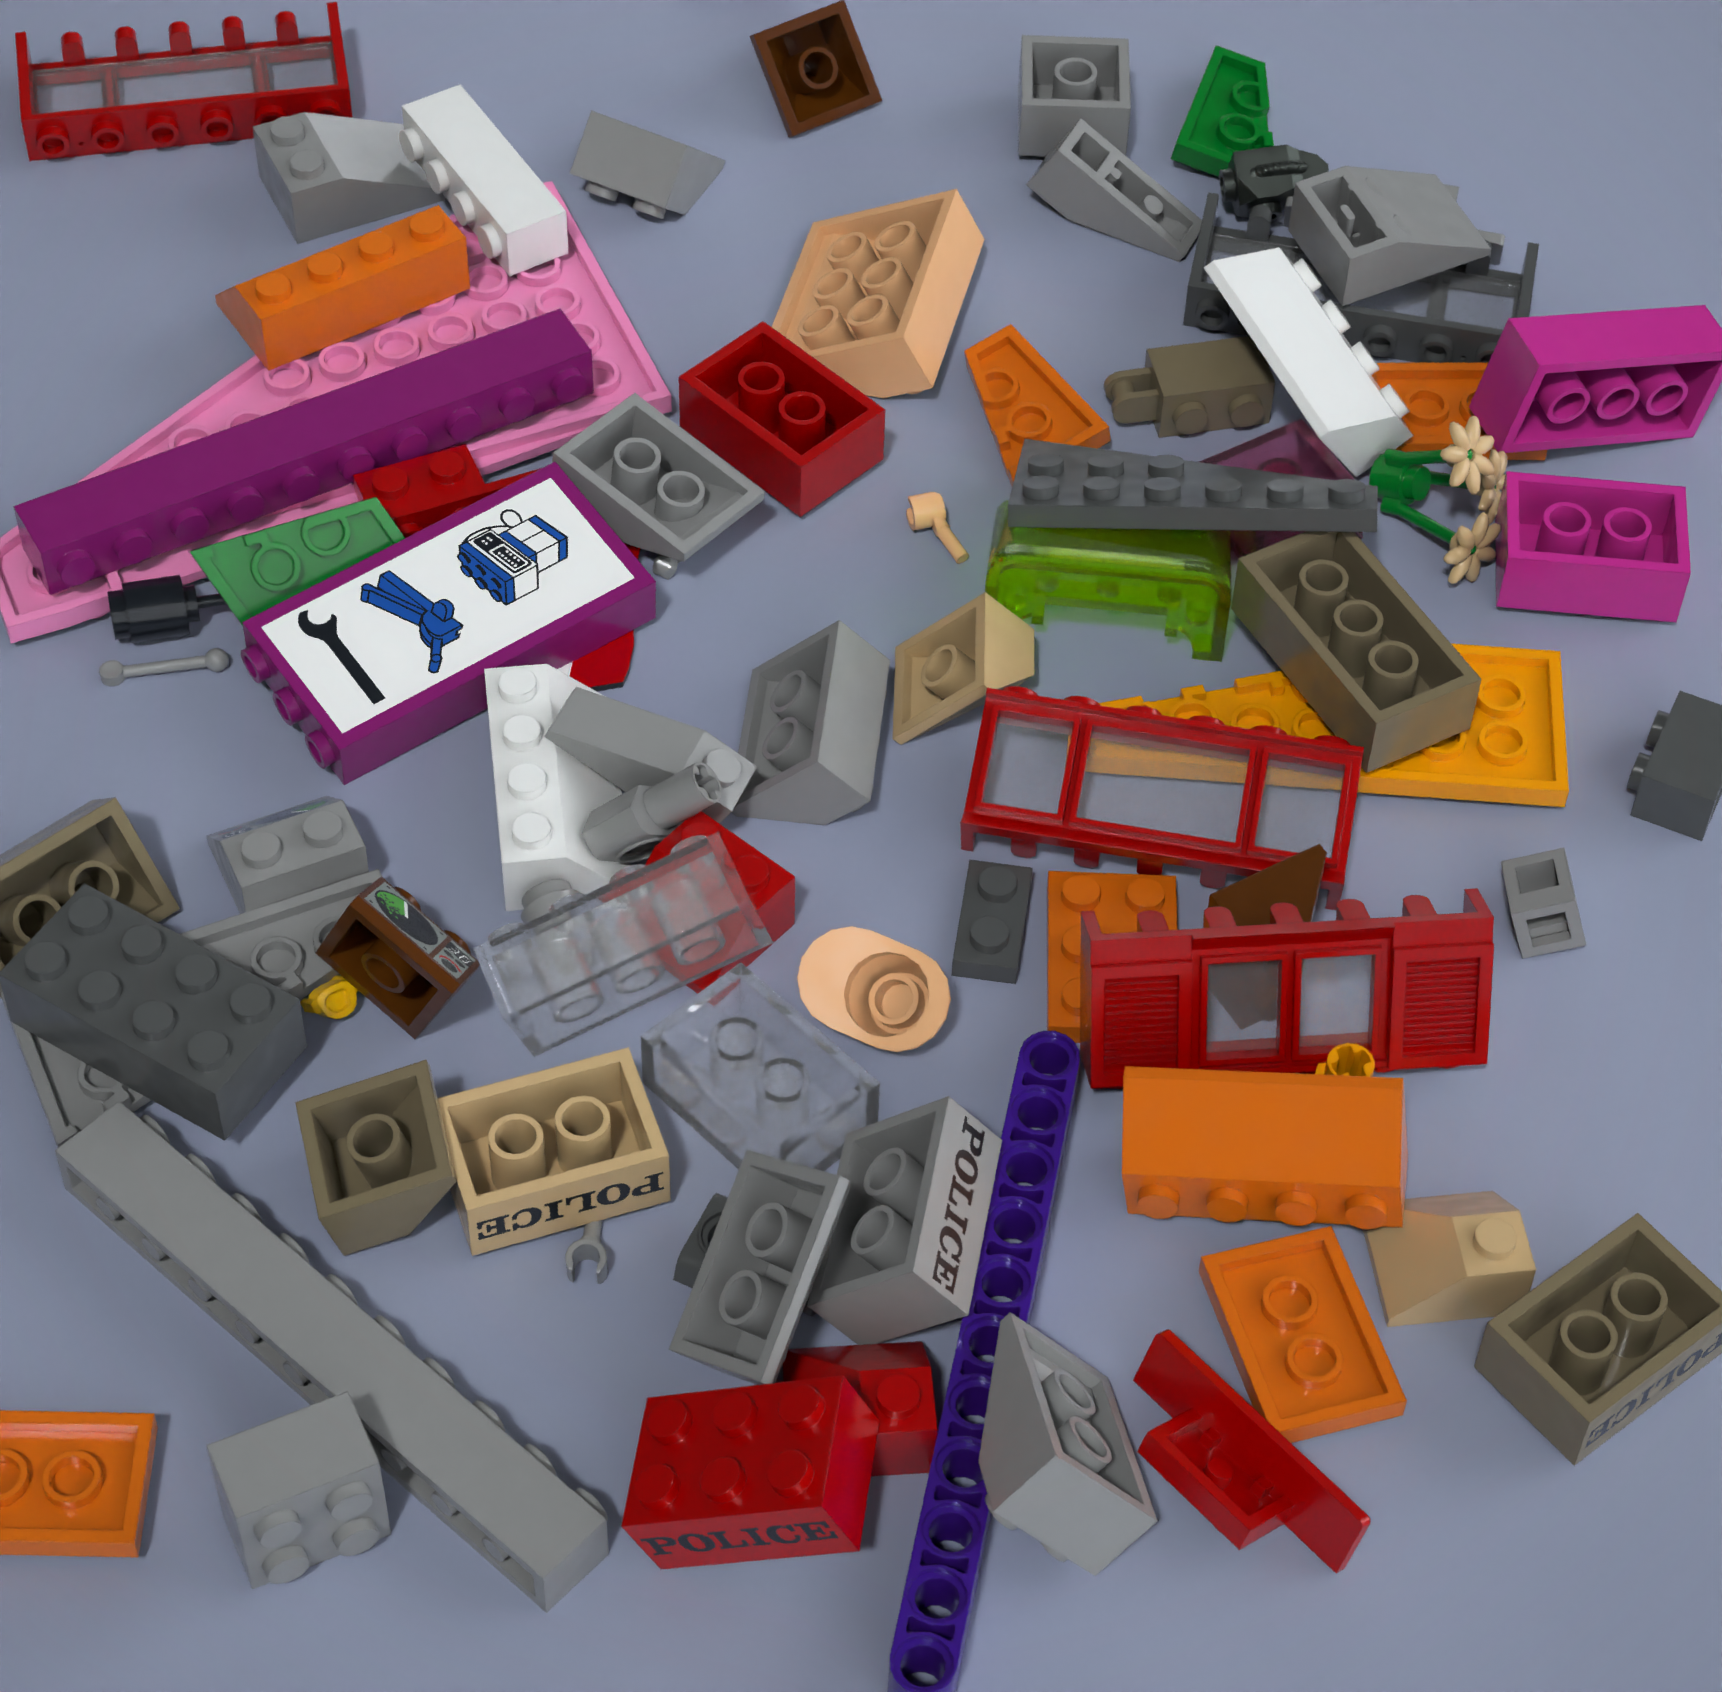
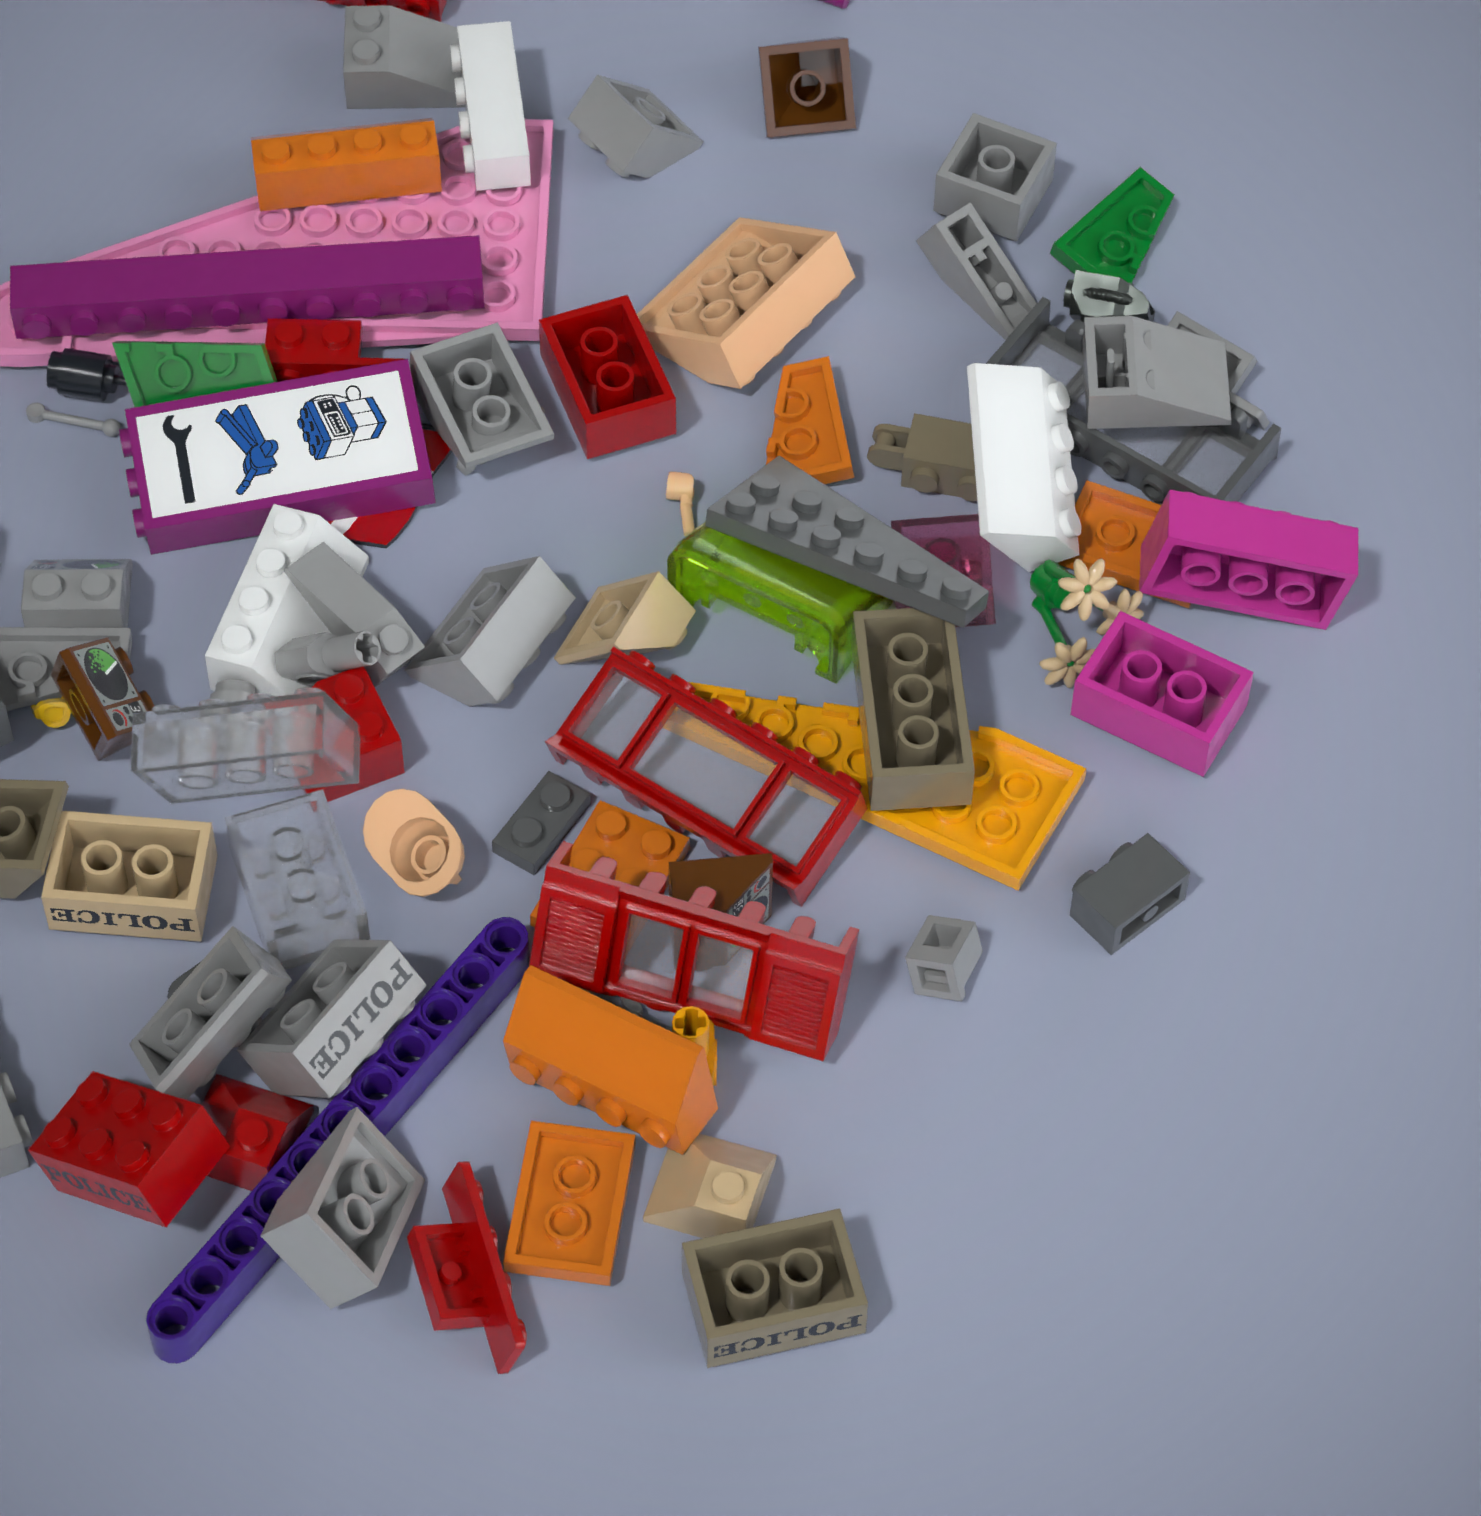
camera: 25 degrees right, 5 degrees up
(588, 1248) = (121, 953): light grey hand -> none

